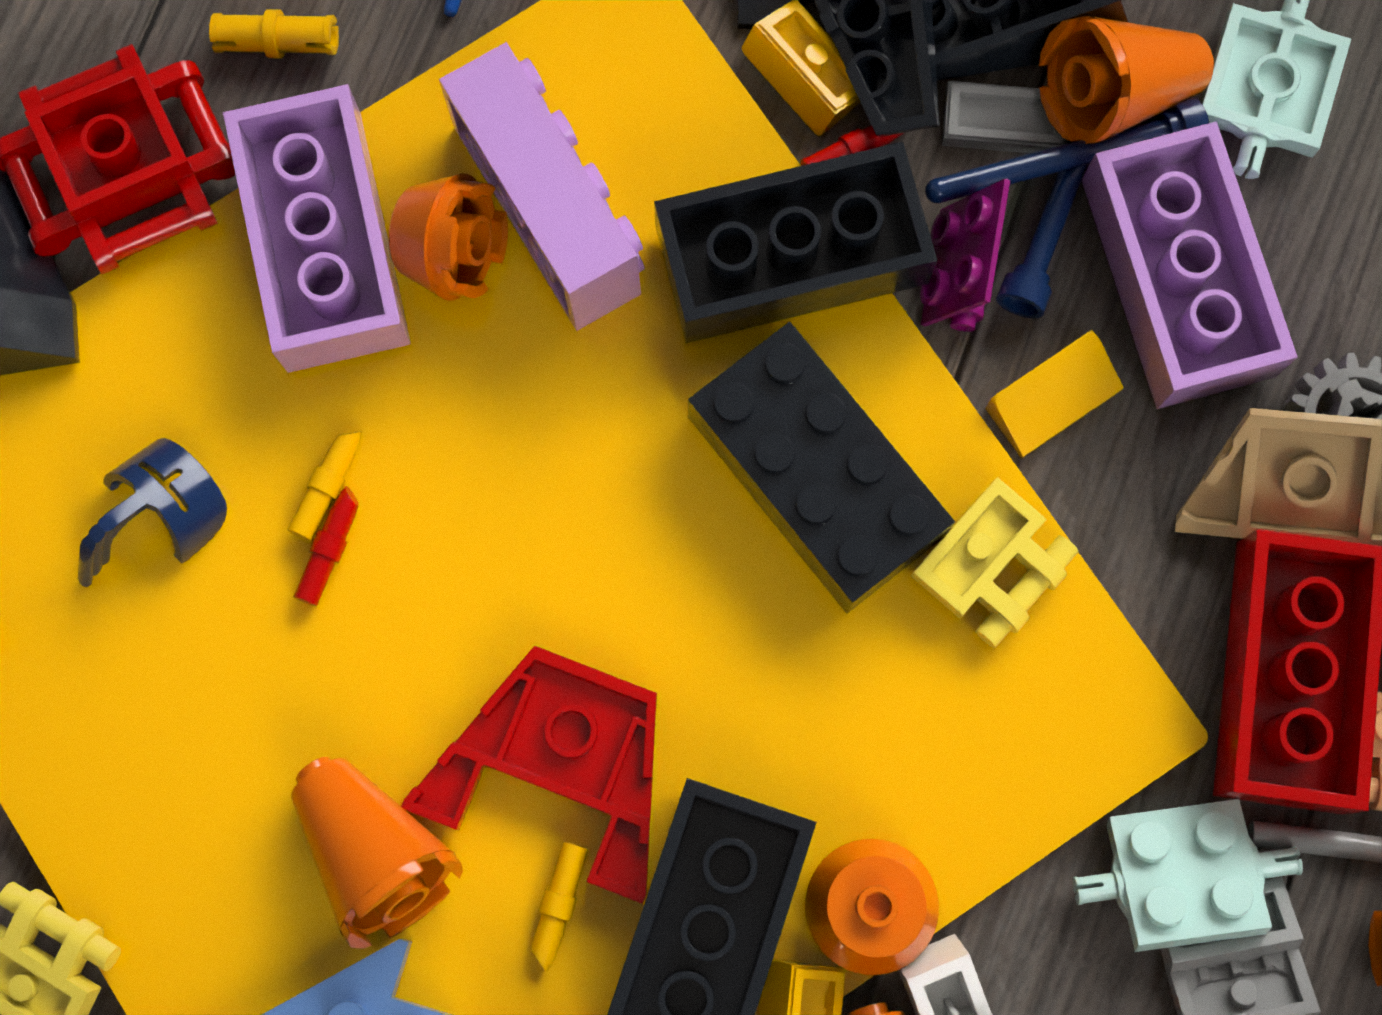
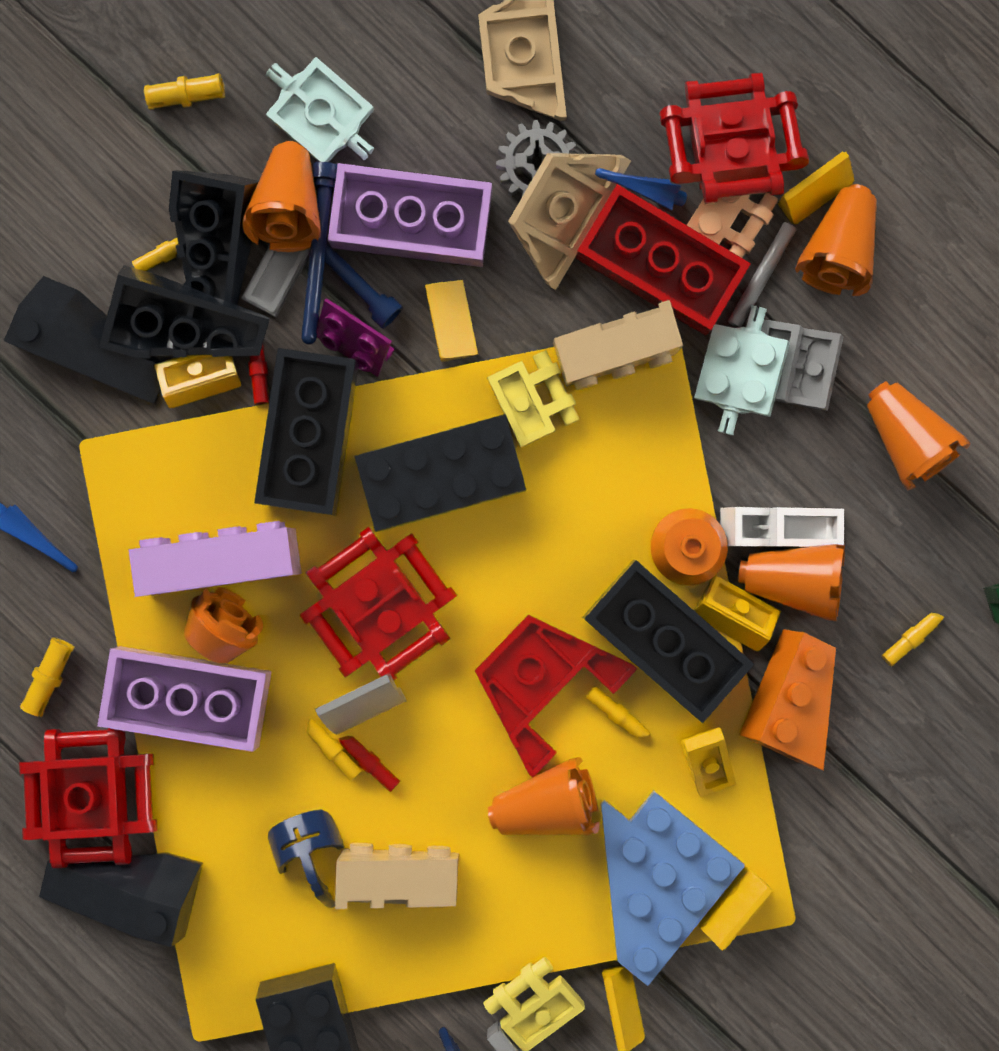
camera: 60 degrees left, 10 degrees up
(161, 655) = (396, 876): none -> tan wedge
(410, 488) = (361, 704): none -> light grey slope
(575, 457) = (378, 604): none -> red brick
(1139, 659) = (618, 346): none -> tan wedge

